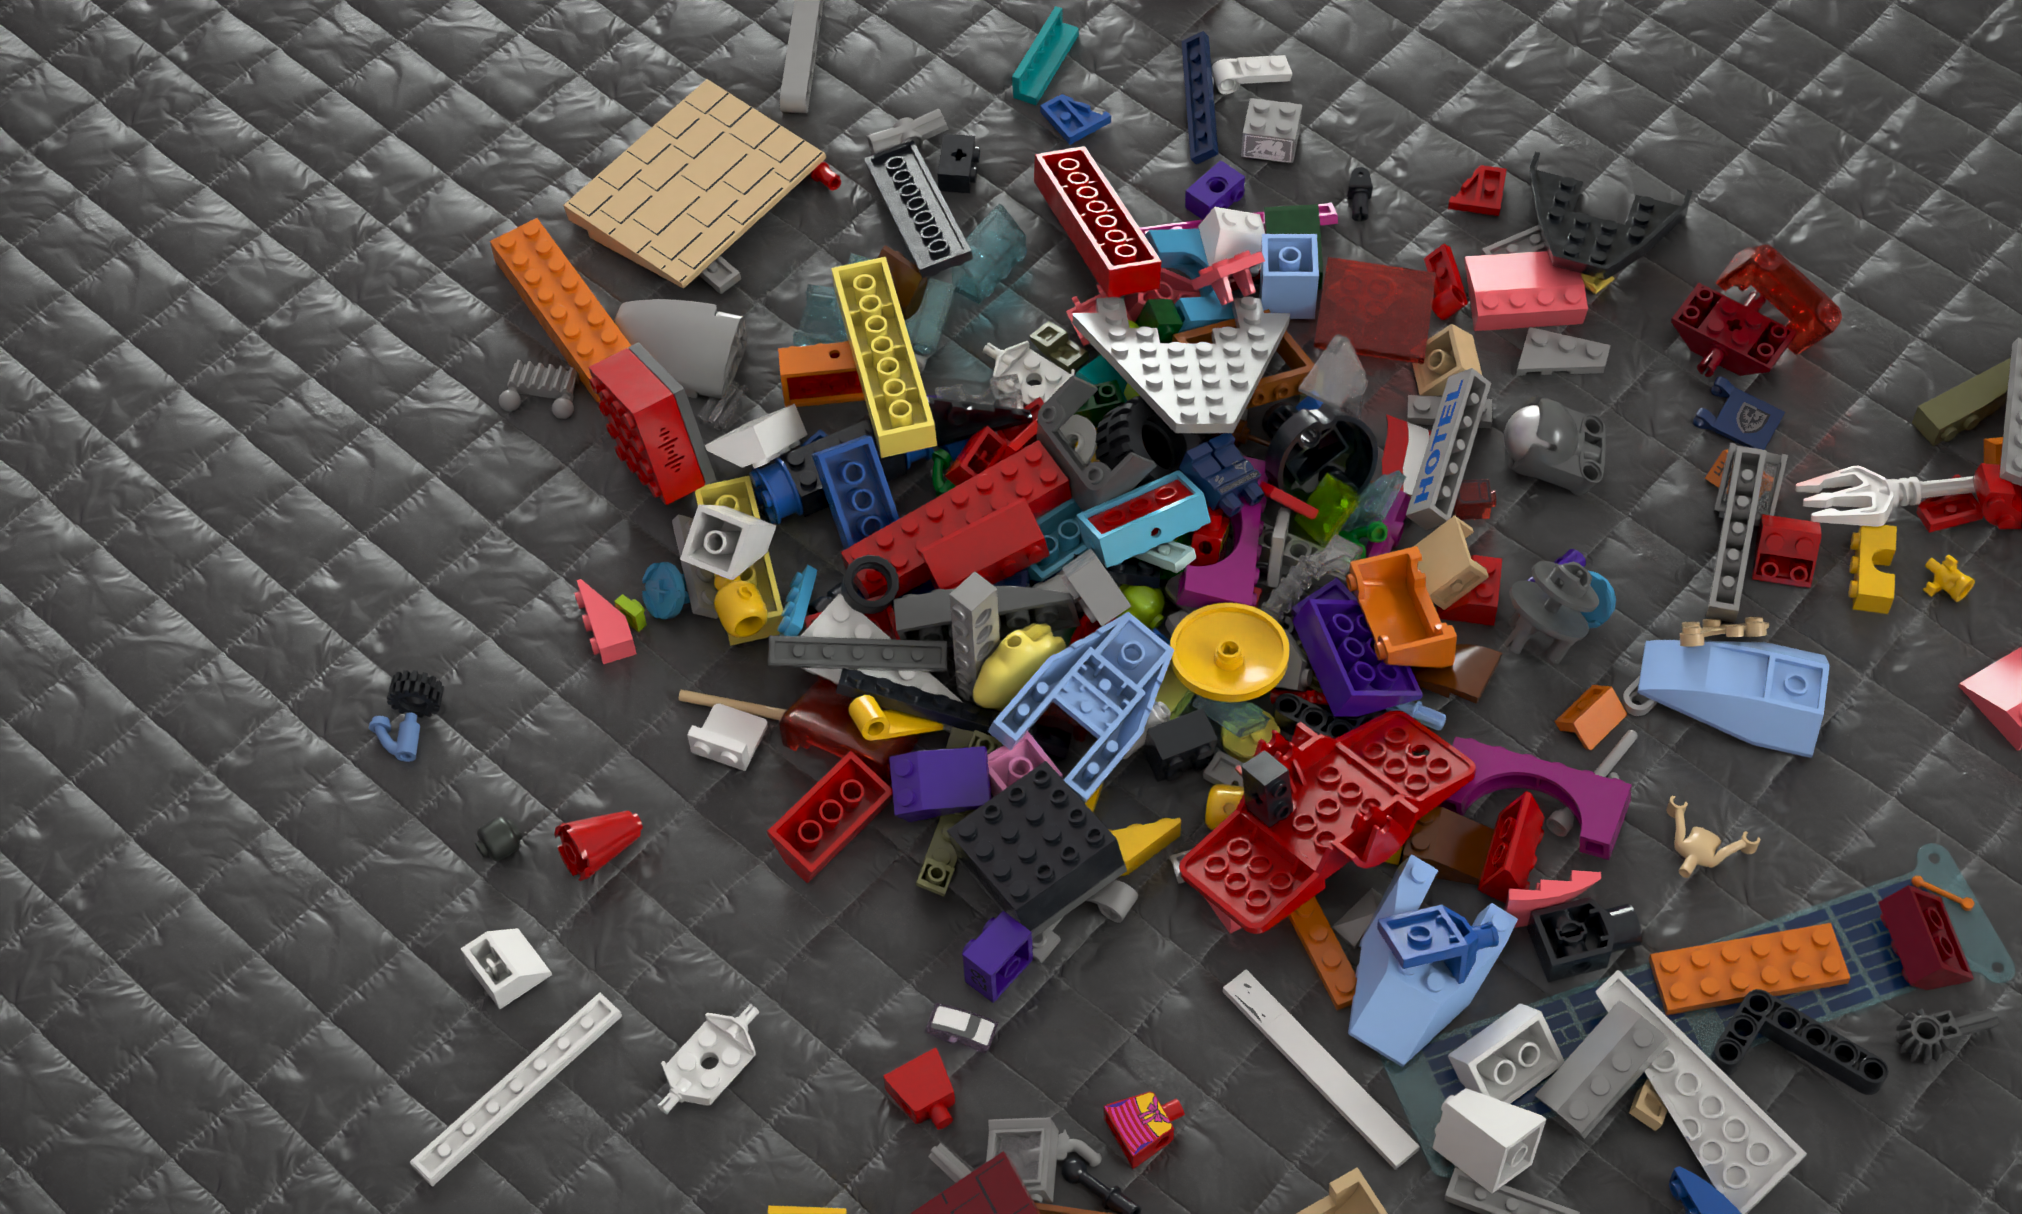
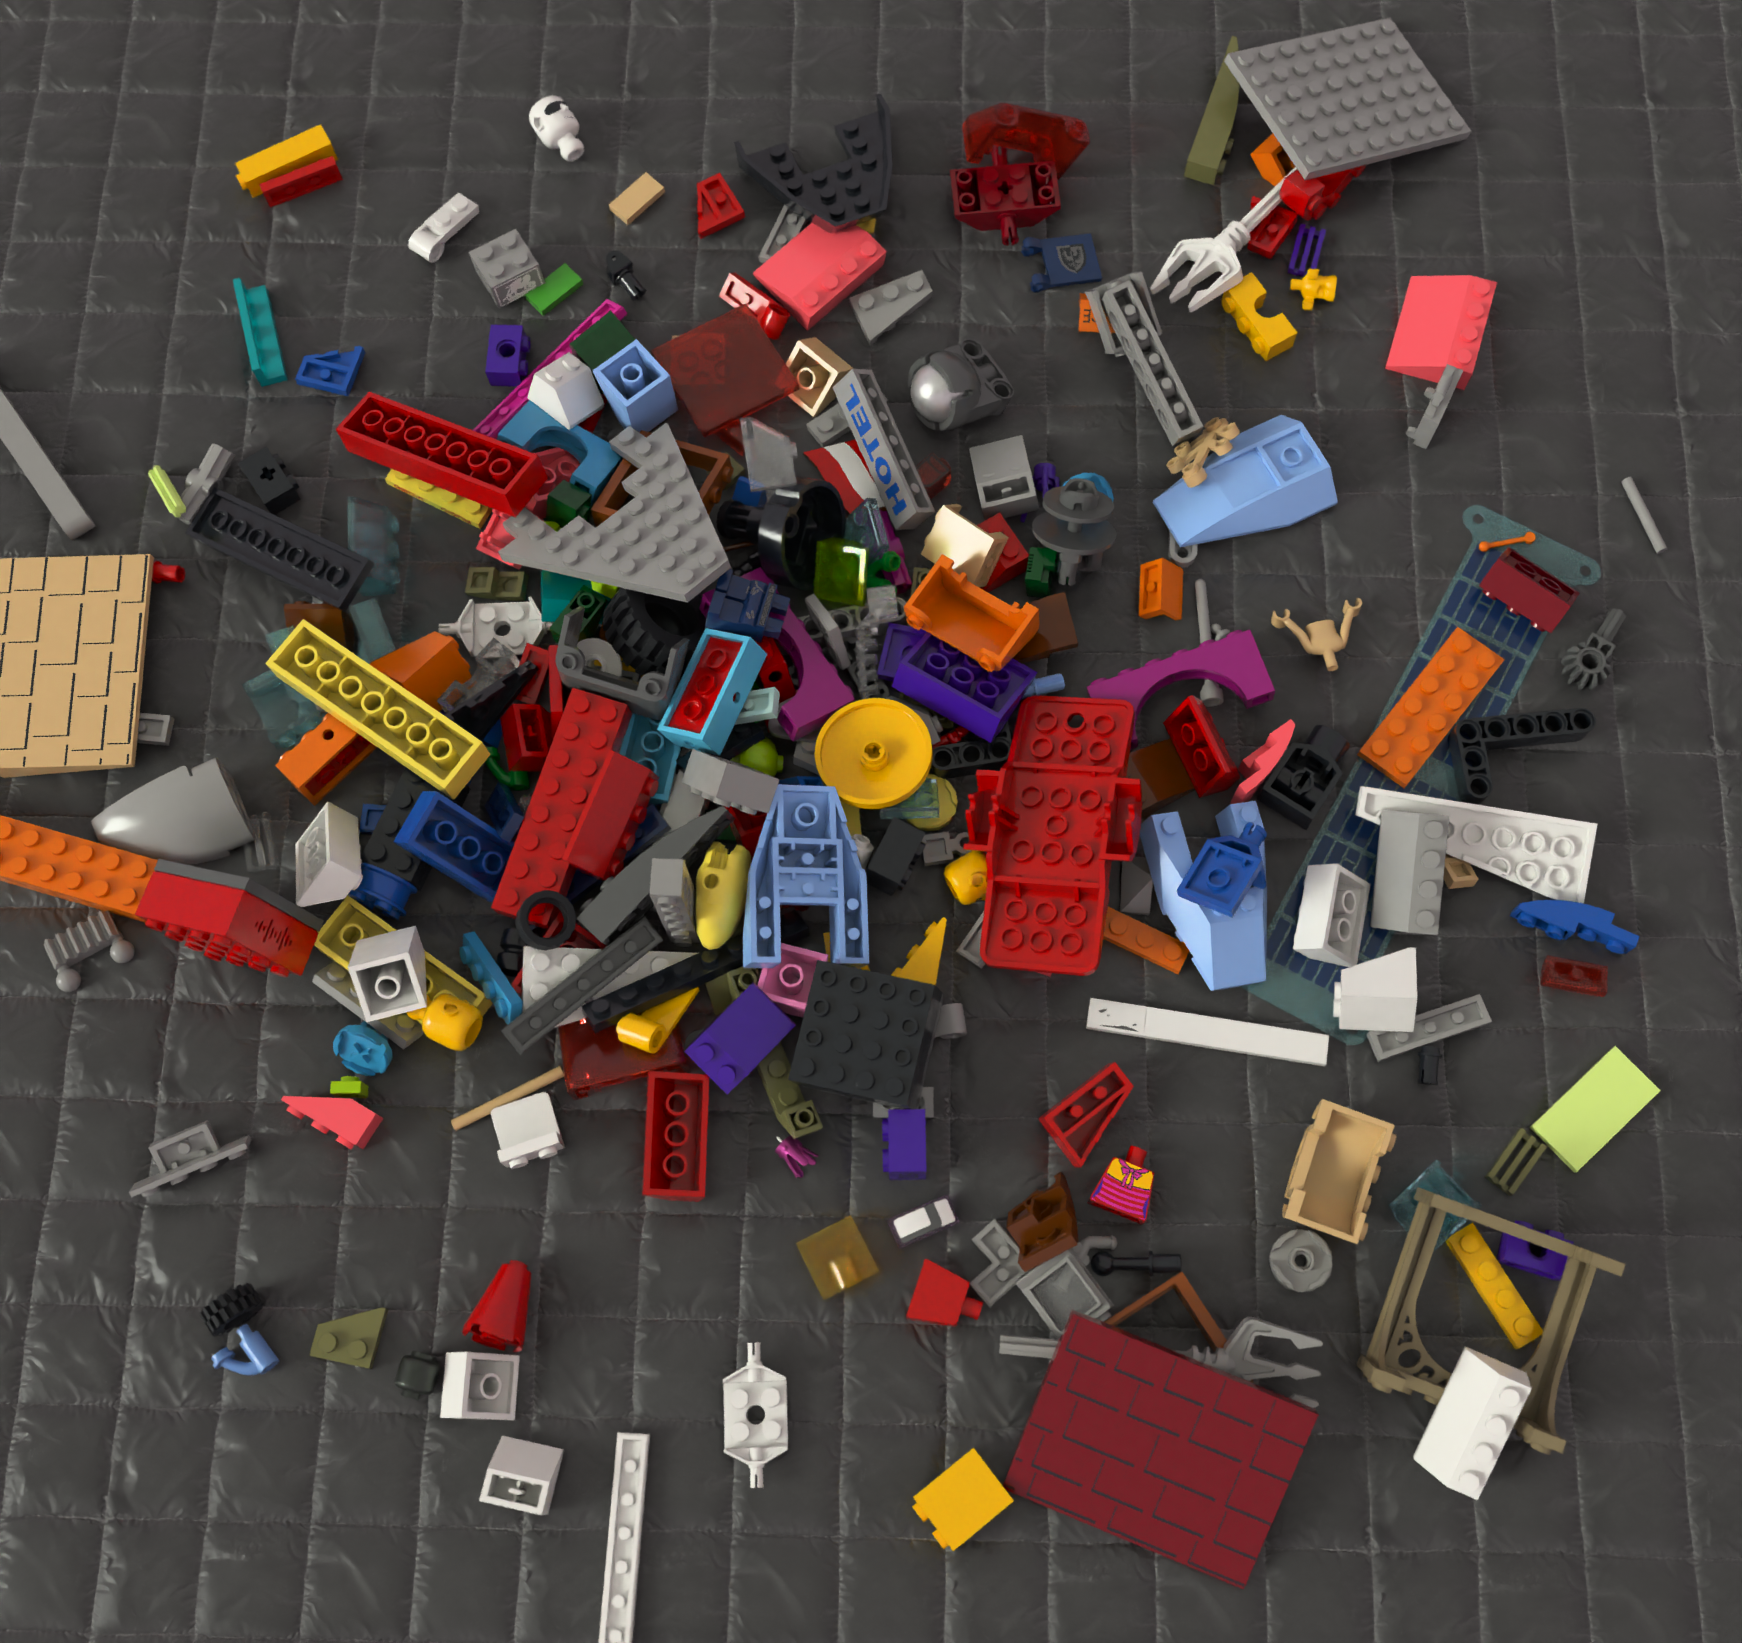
camera: 40 degrees left, 15 degrees up
(477, 782) = (350, 1338): none -> olive wing
(483, 569) = (185, 1153): none -> light grey bracket
(534, 882) = (479, 1386): none -> white slope
(872, 1000) = (837, 1257): none -> clear yellow plate
(876, 120) = (167, 491): none -> yellowish green axle
(908, 900) = (793, 1150): none -> flat silver piece
(914, 500) = (504, 812): none -> dark blue plate
(948, 361) = (426, 667): none -> orange slope
(1001, 1103) = (1004, 1270): none -> light grey tile
(1053, 1096) = (1044, 1224): none -> reddish brown slope
(1071, 258) = (451, 503): none -> light yellow plate
(1162, 1044) = (1084, 1114): none -> red wedge
(1199, 98) = (421, 279): dark blue plate -> none
(1219, 272) = (590, 422): coral plate -> none
(1267, 788) = (1009, 849): black brick -> none
(1289, 501) = (808, 588): red tile -> none
(1300, 171) = (555, 289): none -> bright green tile
(1404, 54) = (557, 126): none -> white piece
(1423, 147) = (636, 198): none -> tan tile
(1496, 625) = (1040, 570): none -> dark green piece
(1531, 537) = (1004, 478): none -> light grey slope
(1786, 550) = (1192, 346): red slope -> none
(1970, 737) = (1439, 400): none -> light grey piece
(1978, 530) = (1311, 233): none -> dark purple tile

